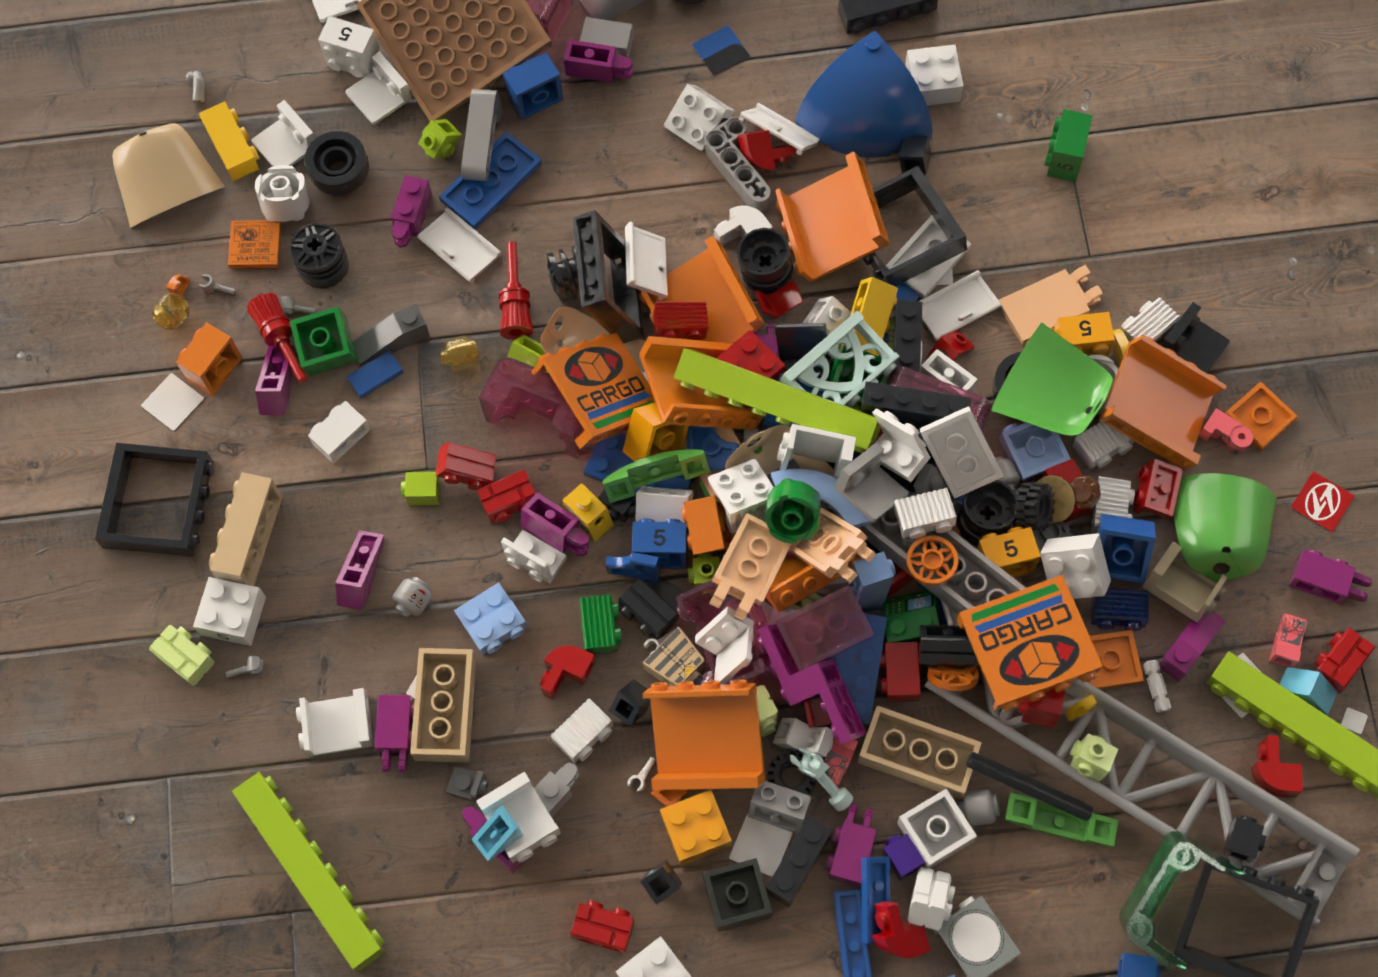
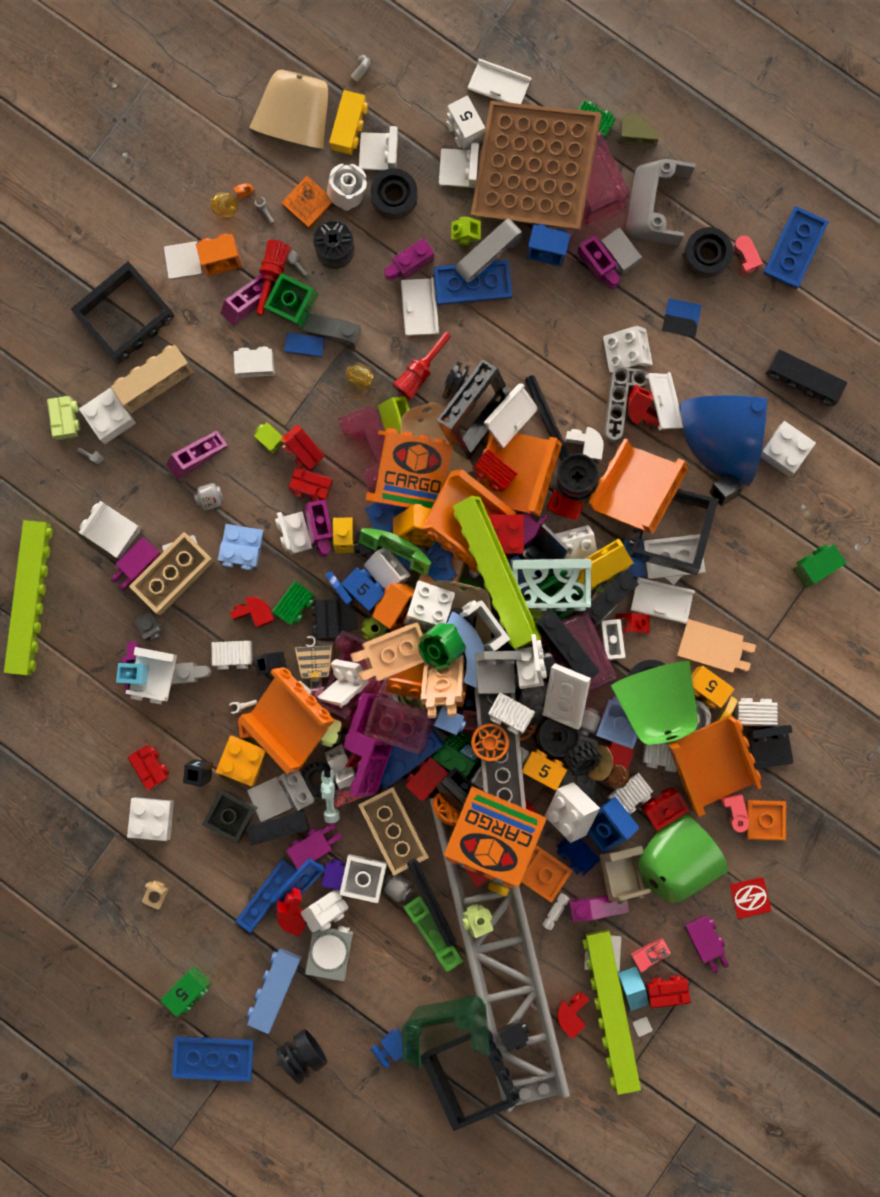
camera: 40 degrees right, 15 degrees up
(675, 235) = (545, 413): none -> black axle

